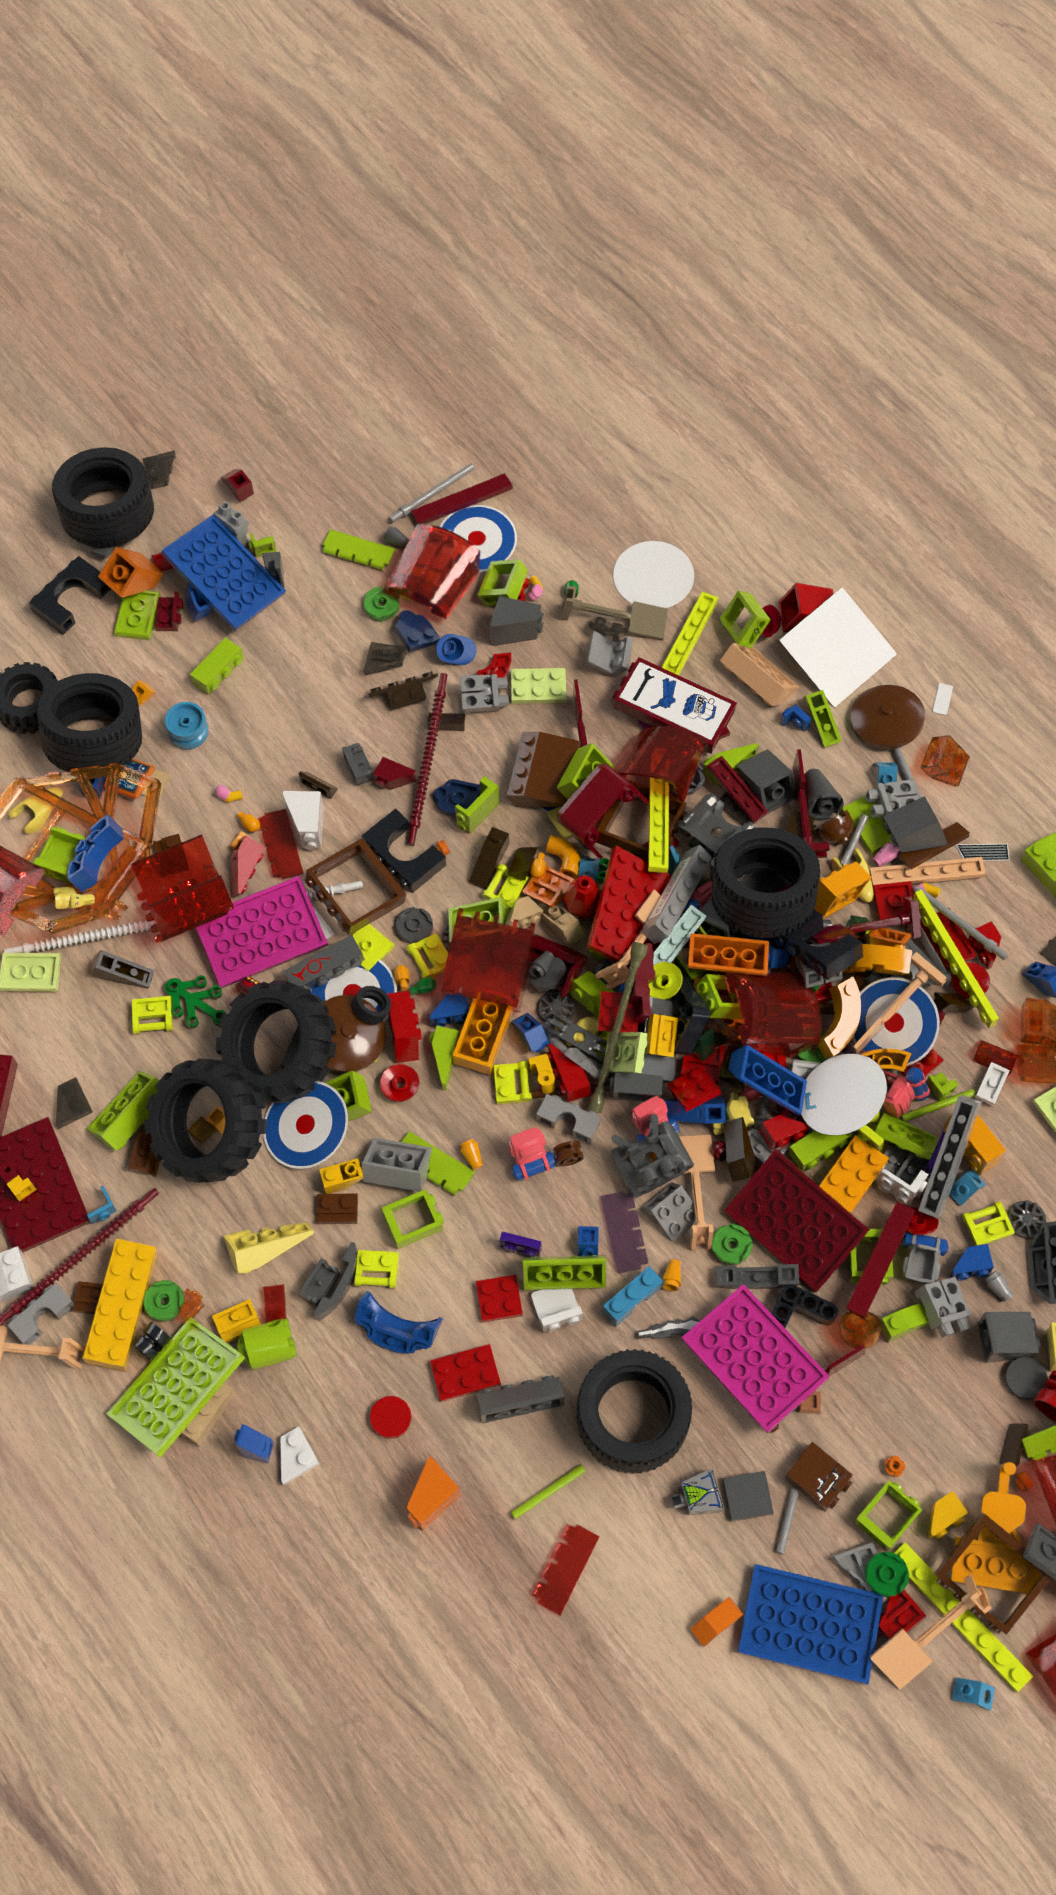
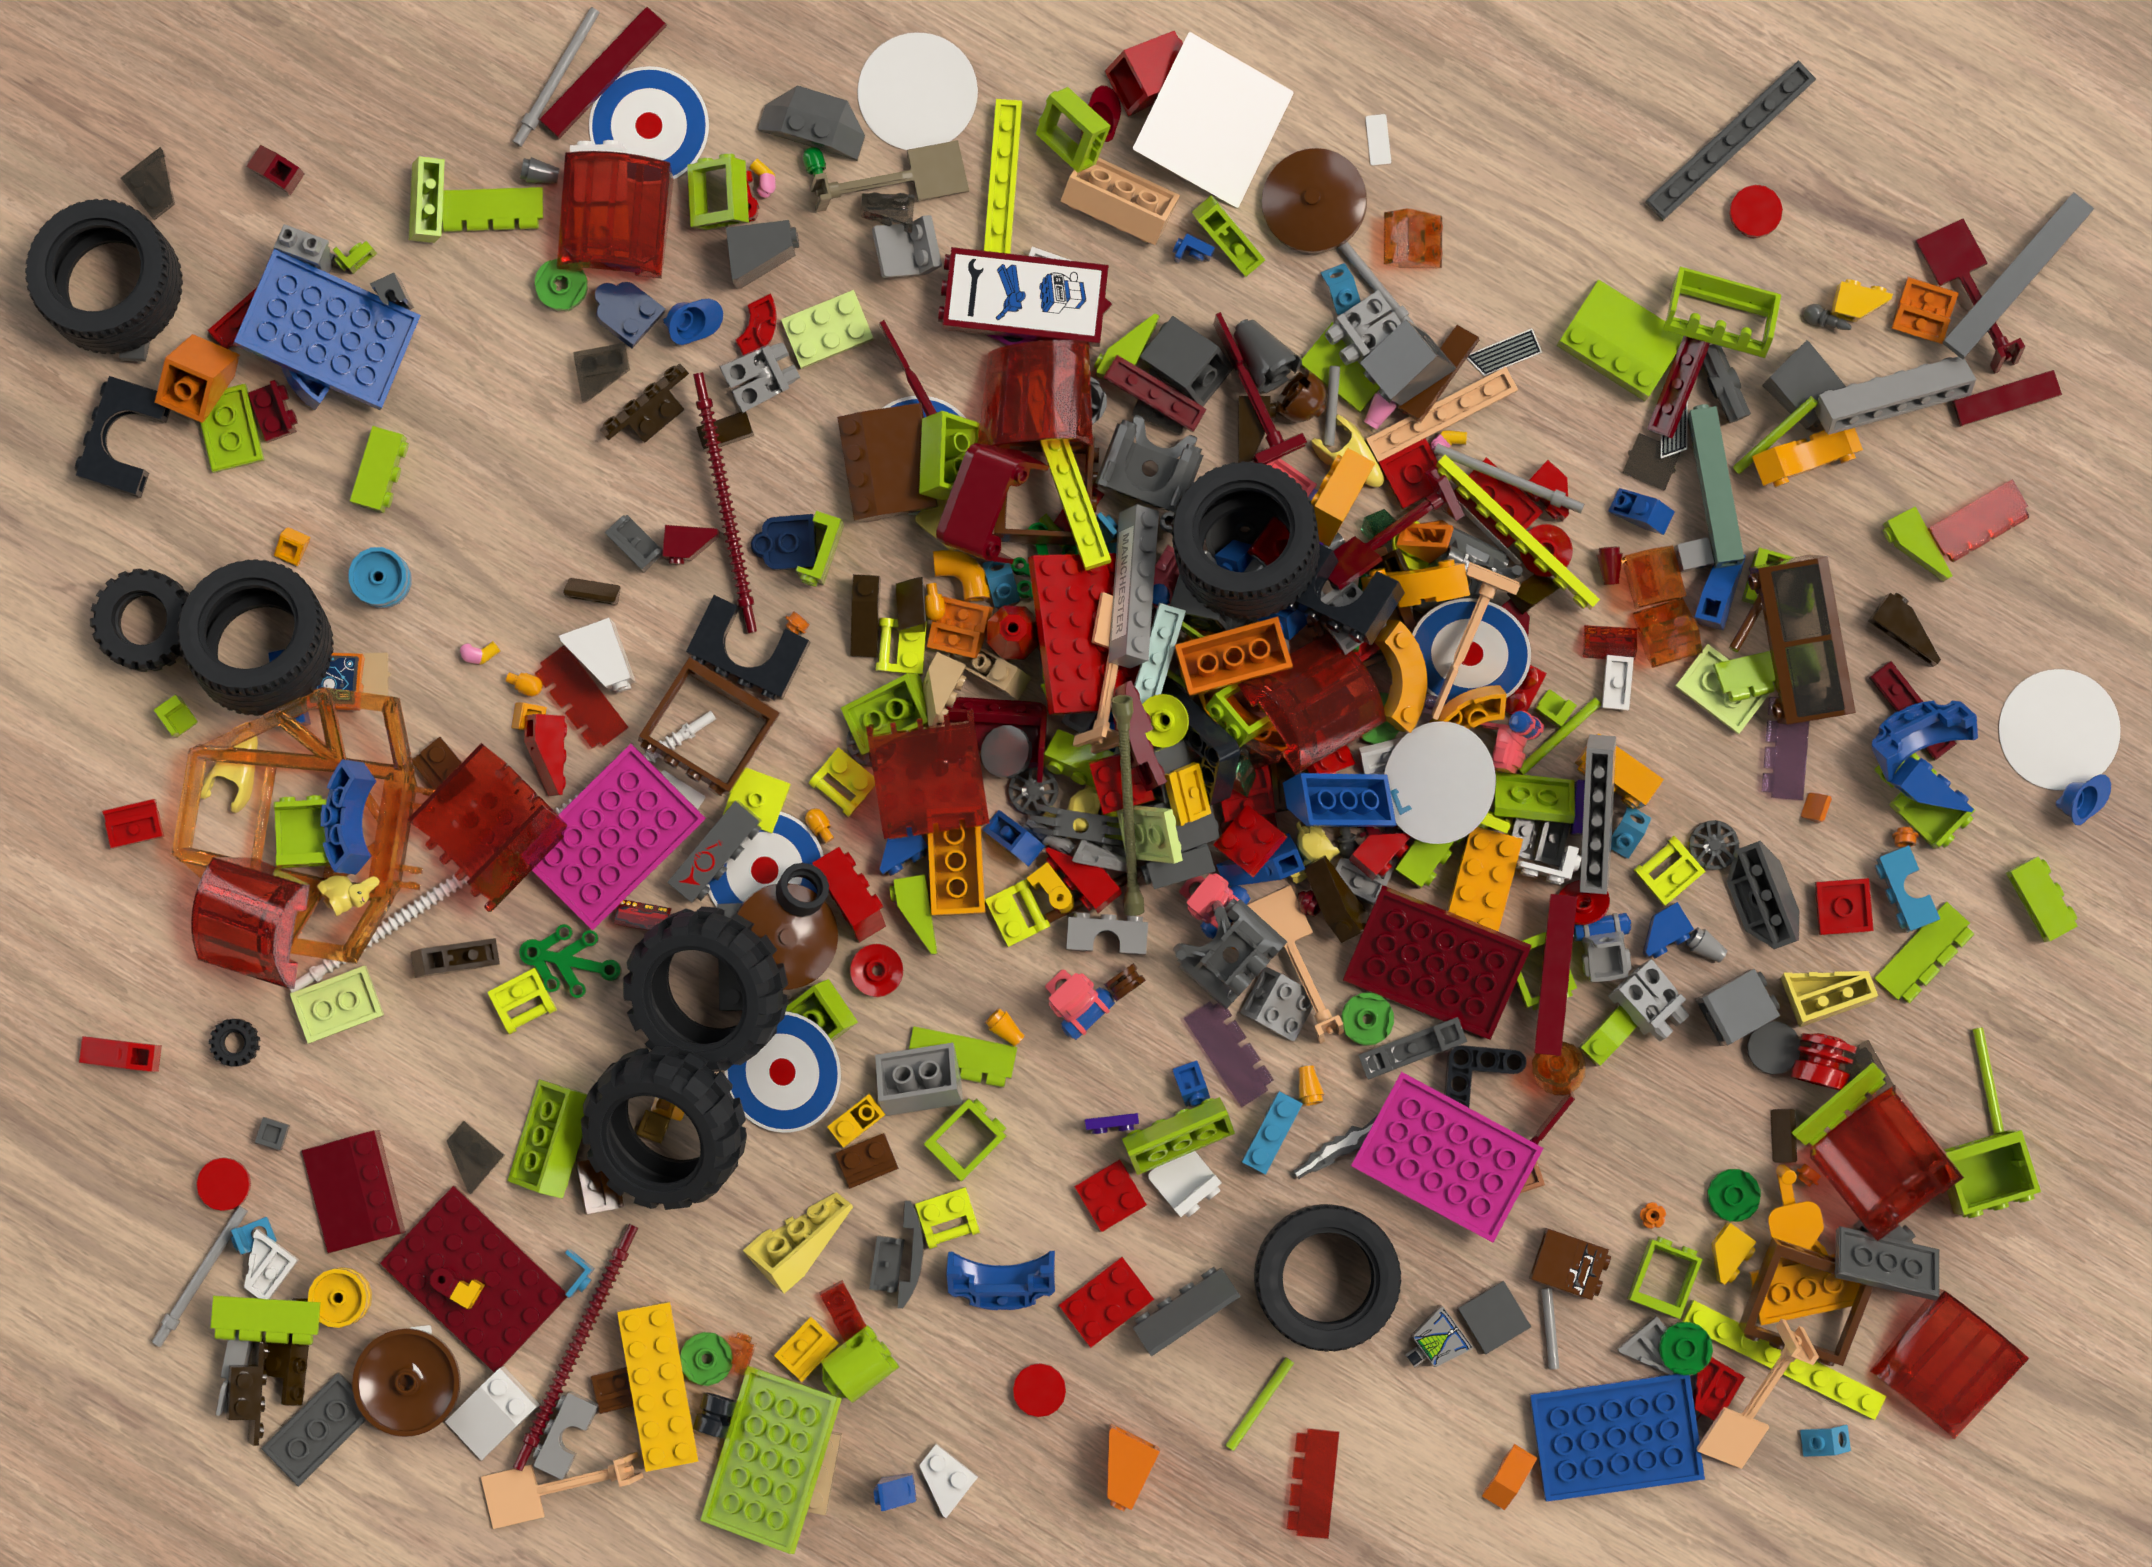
camera: 20 degrees left, 20 degrees up
(18, 761) = (176, 716): none -> lime panel
(320, 527) = (426, 199): none -> lime brick
(414, 925) = (804, 745): dark grey tile -> none
(424, 986) = (853, 826): green cylinder -> none
(540, 966) = (994, 747): dark grey cone -> none
(582, 566) = (814, 121): none -> dark grey wedge
(961, 1475) = (1734, 1195): none -> green tile
(1013, 1004) = (1610, 564): none -> dark red cone

